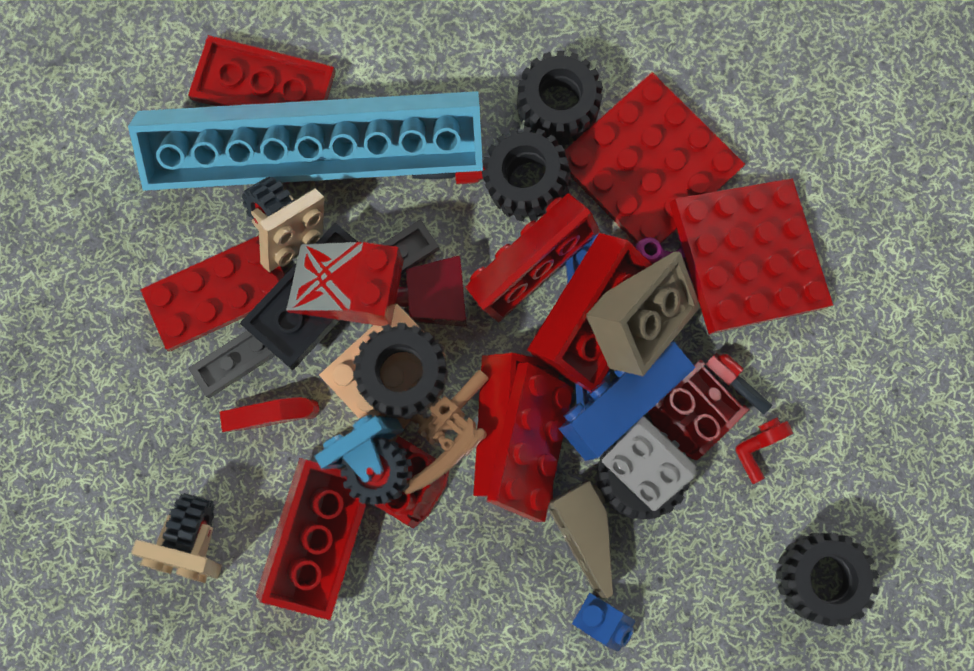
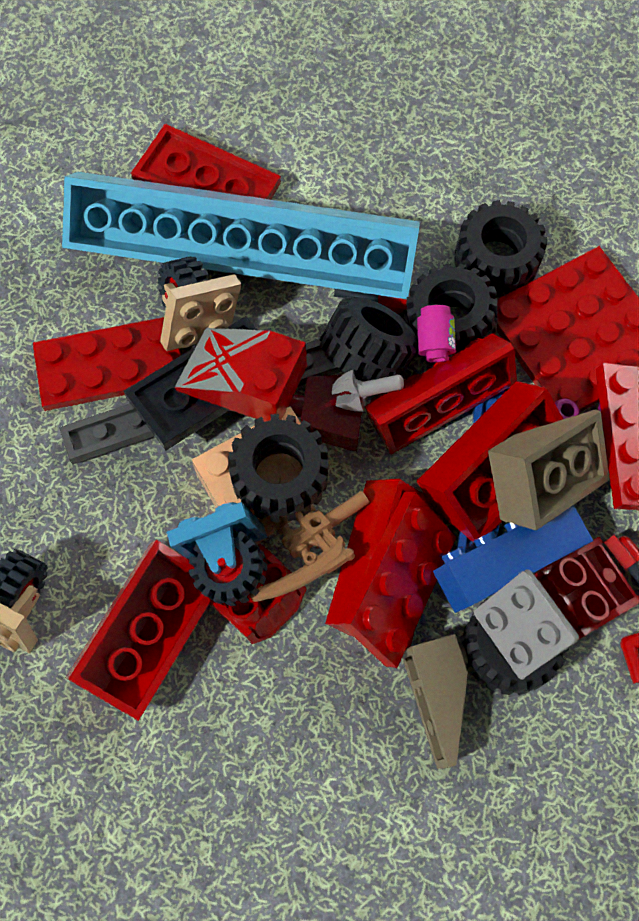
camera: 10 degrees right, 10 degrees down
(268, 413) = (129, 491): red piece -> none
(452, 279) = (361, 389): none -> light grey bar
(456, 224) = (368, 339): none -> black tyre
(516, 206) = (436, 333): none -> dark pink brick
(604, 623) = (440, 798): blue bracket -> none

